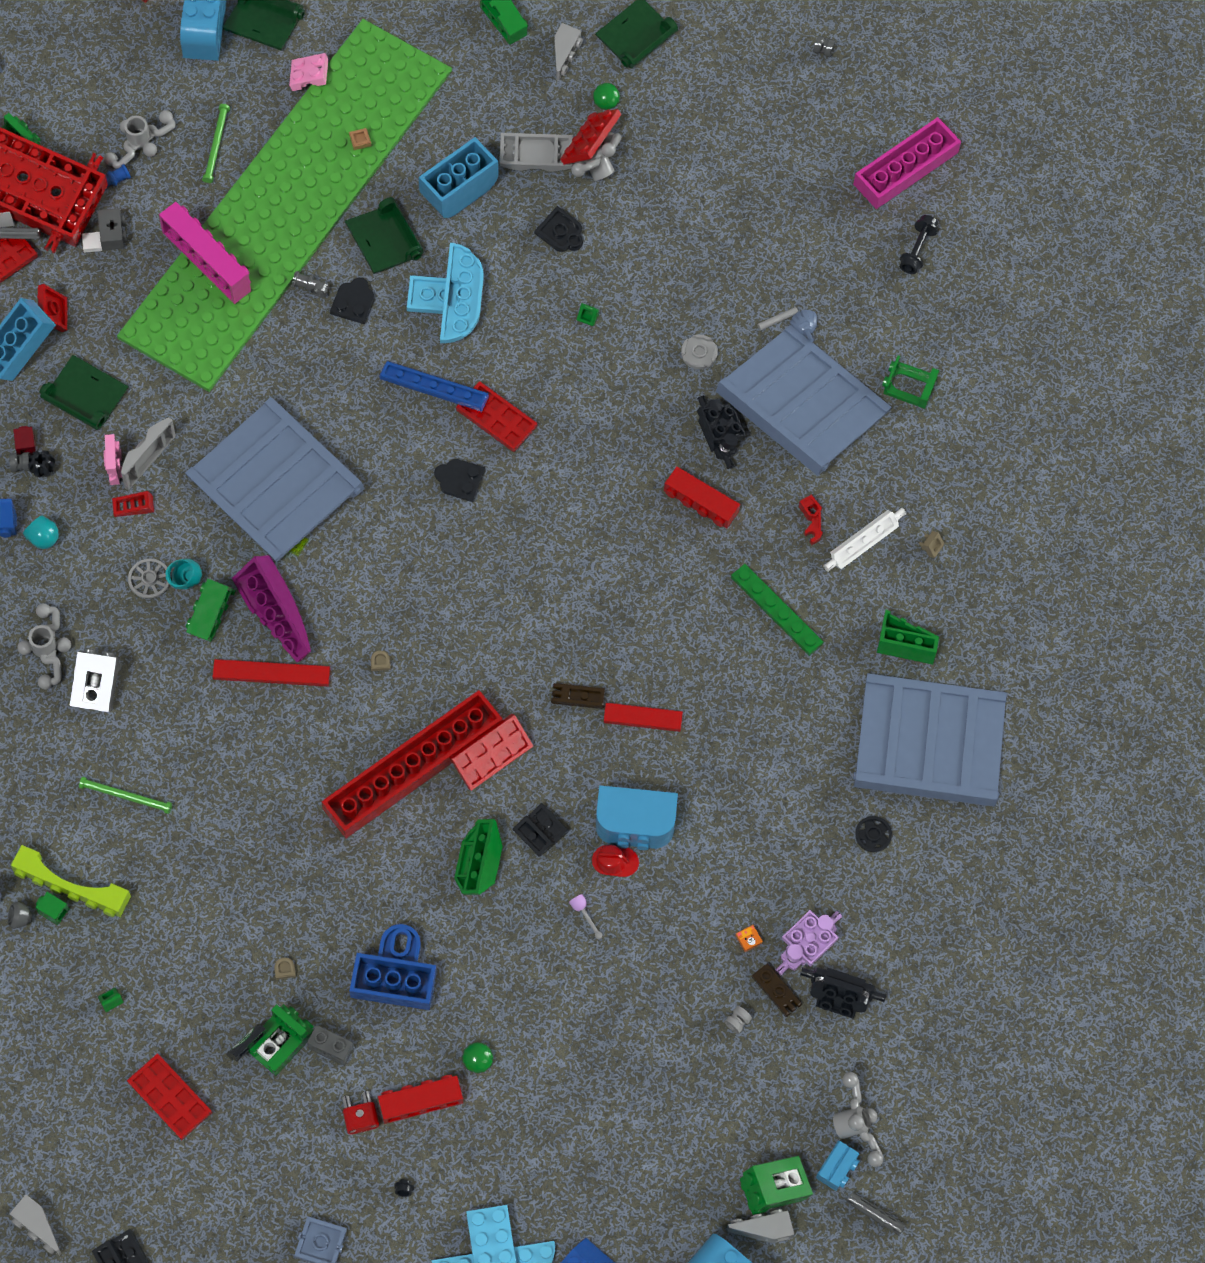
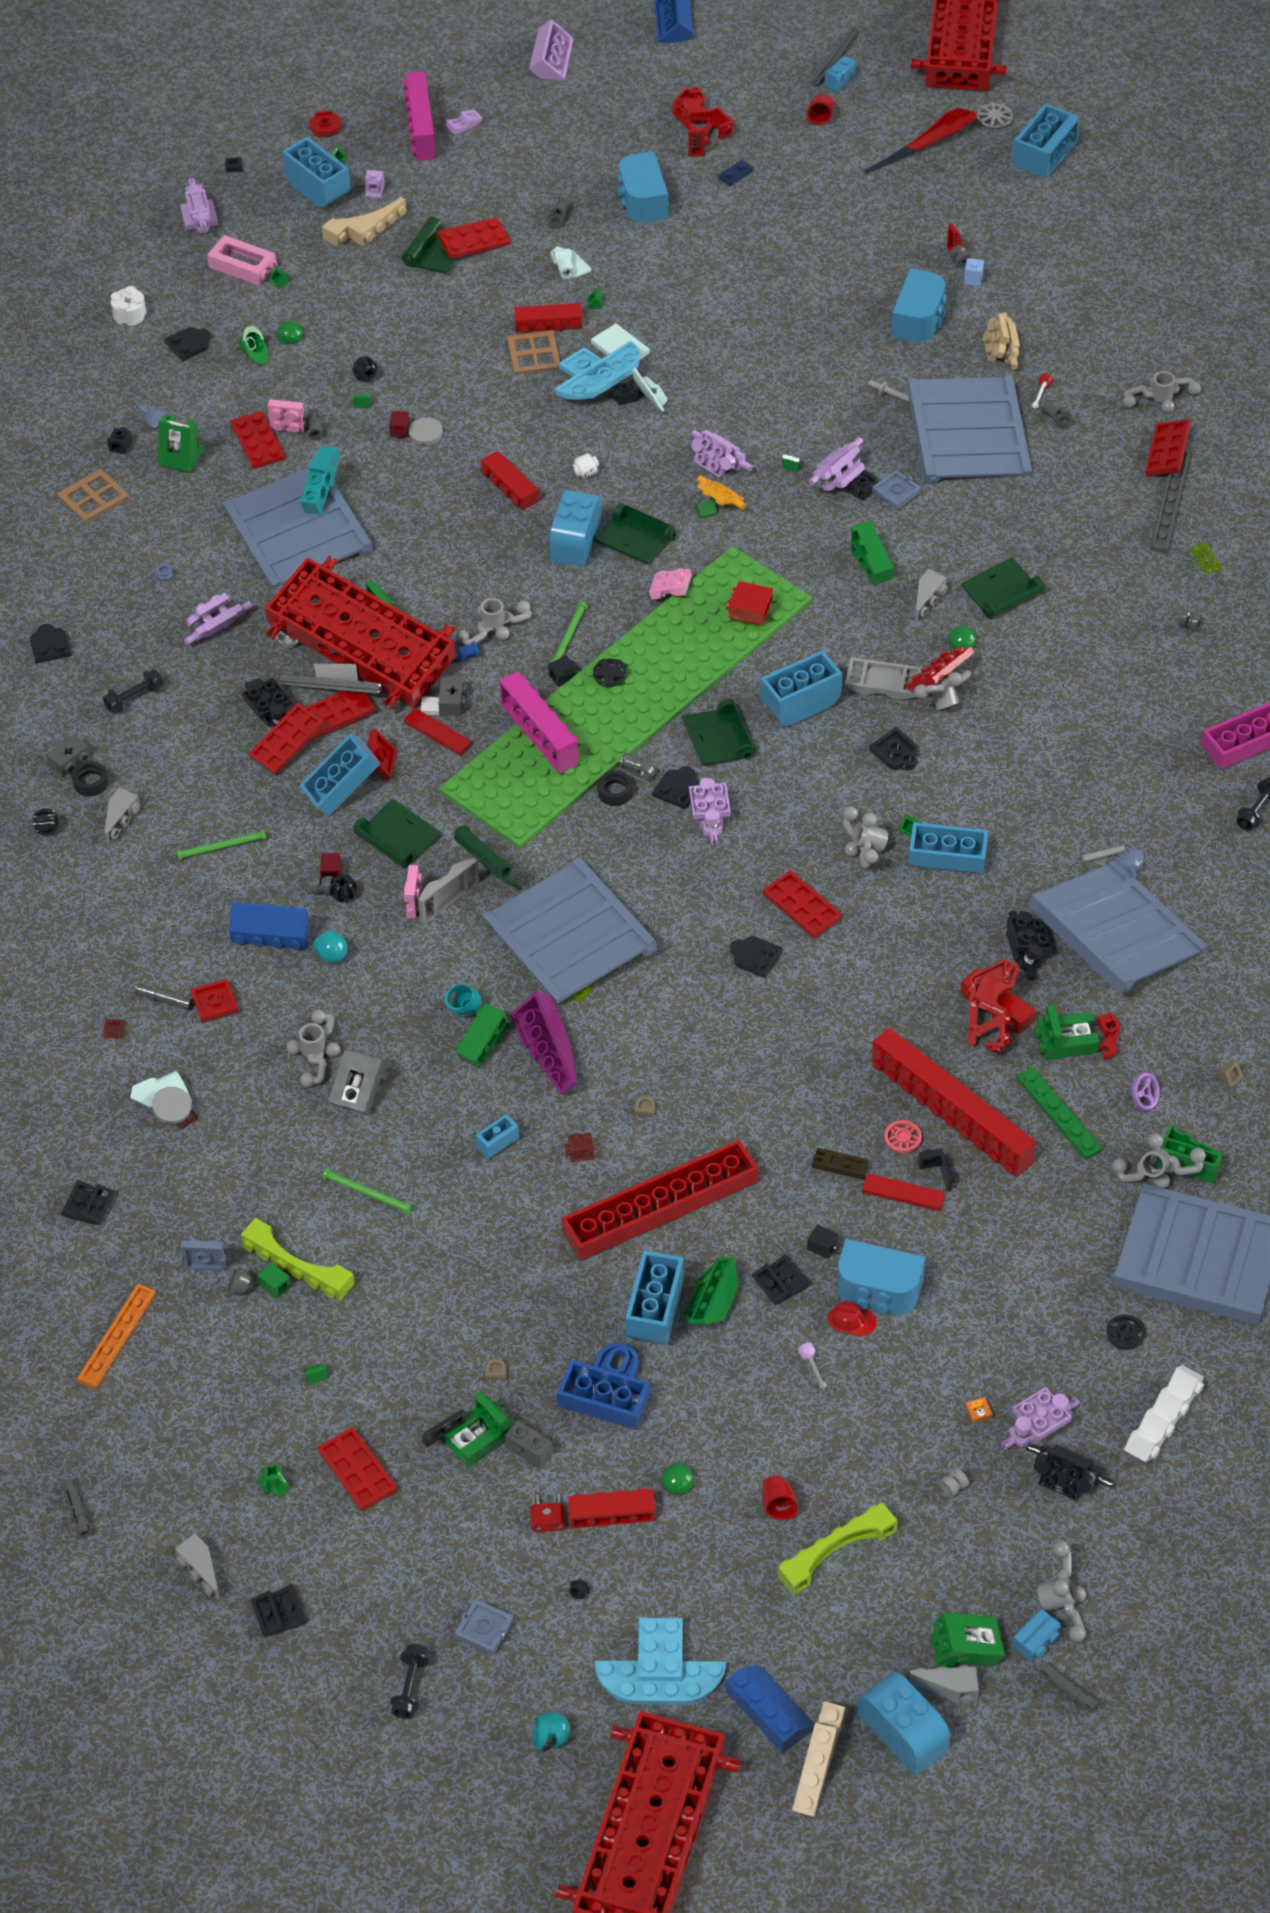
camera: 15 degrees right, 15 degrees down
(90, 1122) = (273, 1480): none -> green piece
(104, 270) = (438, 732): none -> red tile
(141, 509) = (433, 941): red slope -> none
(148, 579) = (427, 1003): light grey wheel -> none
(195, 427) = (486, 856): none -> dark green door
(217, 185) = (562, 670): none -> black brick
(242, 718) = (497, 1136): none -> dark azure brick
(265, 182) = (609, 671): none -> black wheel
(271, 672) = (533, 1102): red tile -> none
(289, 299) = (614, 799): none -> black tyre
(325, 716) = (579, 1147): none -> clear red brick
(360, 139) = (710, 646): medium nougat tile -> none
(389, 321) = (709, 805): none -> lavender piece
(392, 86) = (750, 602): none -> red brick
(426, 875) = (655, 1297): none -> dark azure brick
(434, 386) = (744, 869): blue tile -> none
(455, 296) = (778, 795): medium azure plate -> none
(491, 752) = (742, 1200): plate -> none
(547, 335) = (865, 836): none -> light grey wheel
(575, 1057) = (776, 1494): none -> red helmet
(576, 784) = (823, 1242): none -> black brick
(629, 335) = (948, 847): none -> dark azure brick
(633, 657) = (903, 1136): none -> coral wheel
(664, 678) = (936, 1158): none -> black bracket
(671, 1074) = (875, 1523): none -> lime arch
(676, 617) = (953, 1102): none -> red brick
(690, 493) = (984, 992): none -> red piece
(700, 357) = (1018, 873): light grey tile -> none
(766, 527) = (1065, 1035): none -> green brick
(776, 989) = (999, 1462): dark brown hinge -> none
(851, 575) = (1143, 1091): none -> medium lavender piece
(864, 539) = (1161, 1059): white plate -> none
(891, 655) = (1170, 1164): none -> light grey wheel
(898, 368) = (1250, 926): green panel -> none
(922, 917) = (1161, 1419): none -> white brick

